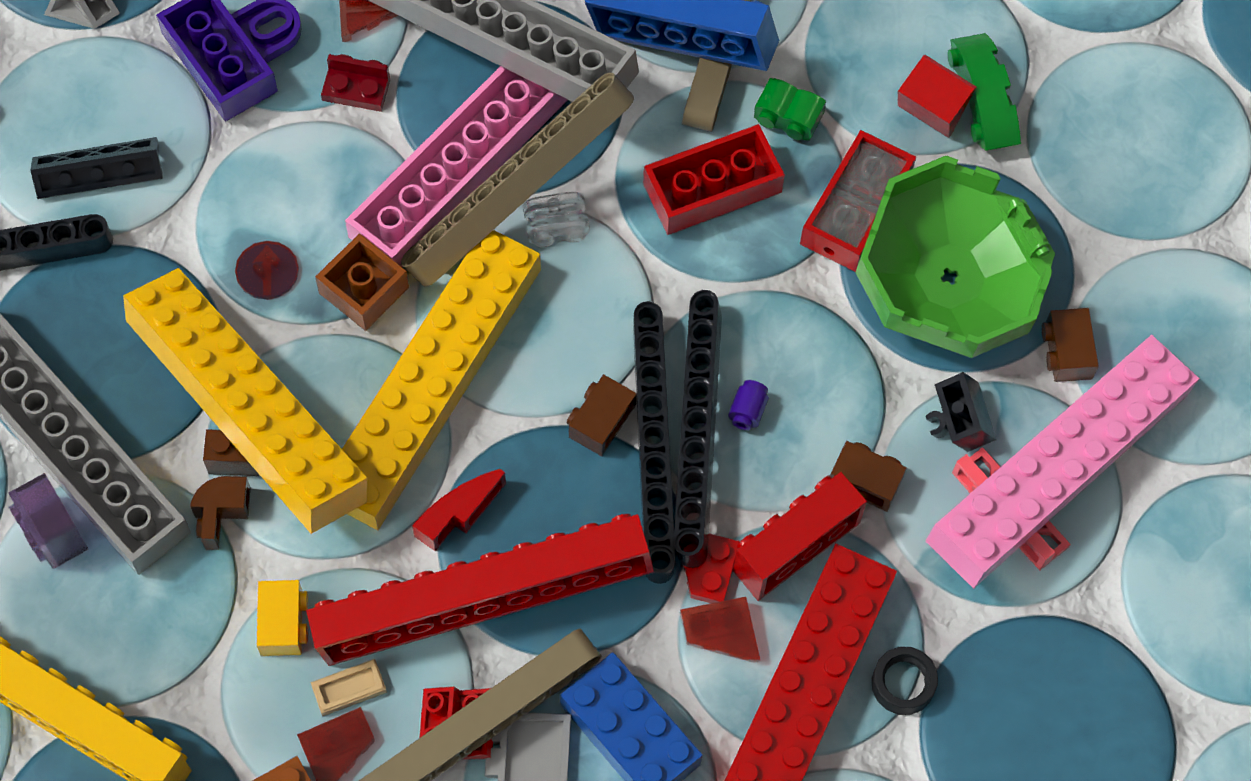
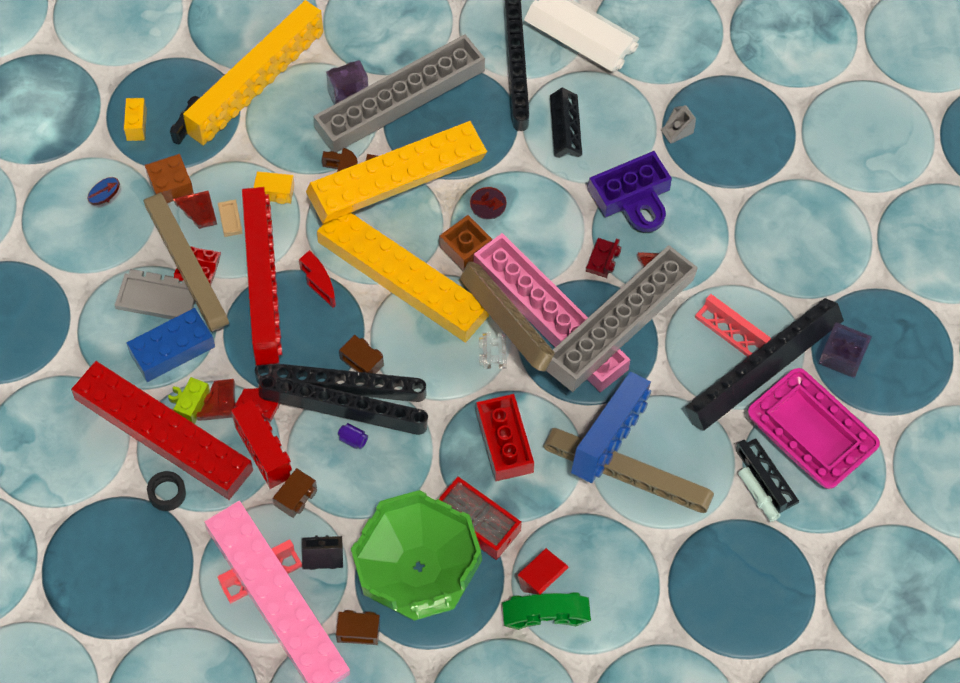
camera: 100 degrees right, 5 degrees down
(733, 673) = (191, 399): none -> lime brick
(789, 109) = (551, 492): green brick -> none

